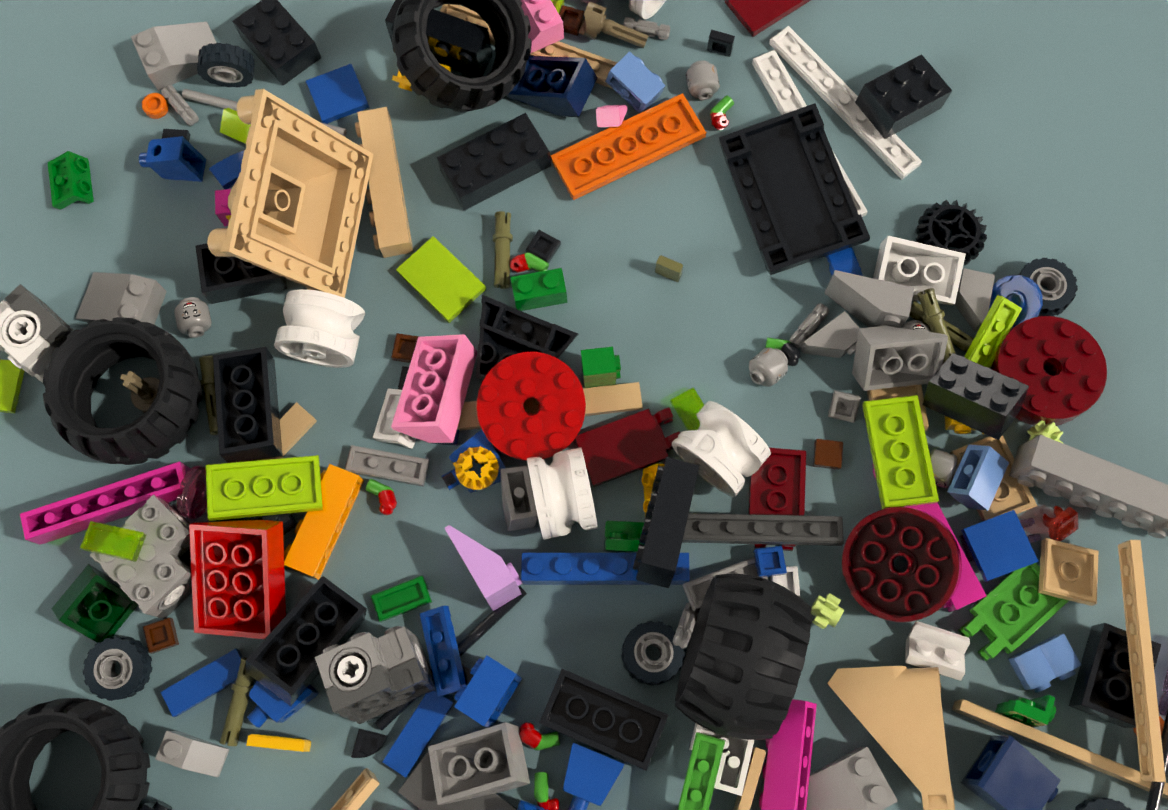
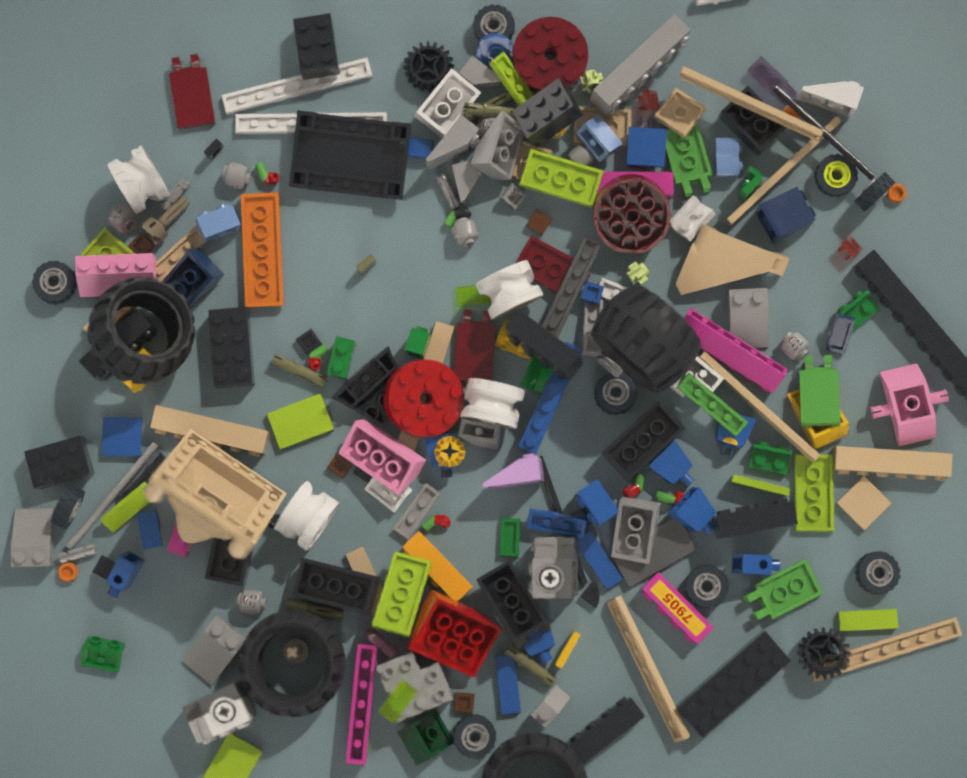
camera: 70 degrees left, 10 degrees up
(610, 115) = (233, 251): bright pink slope -> none

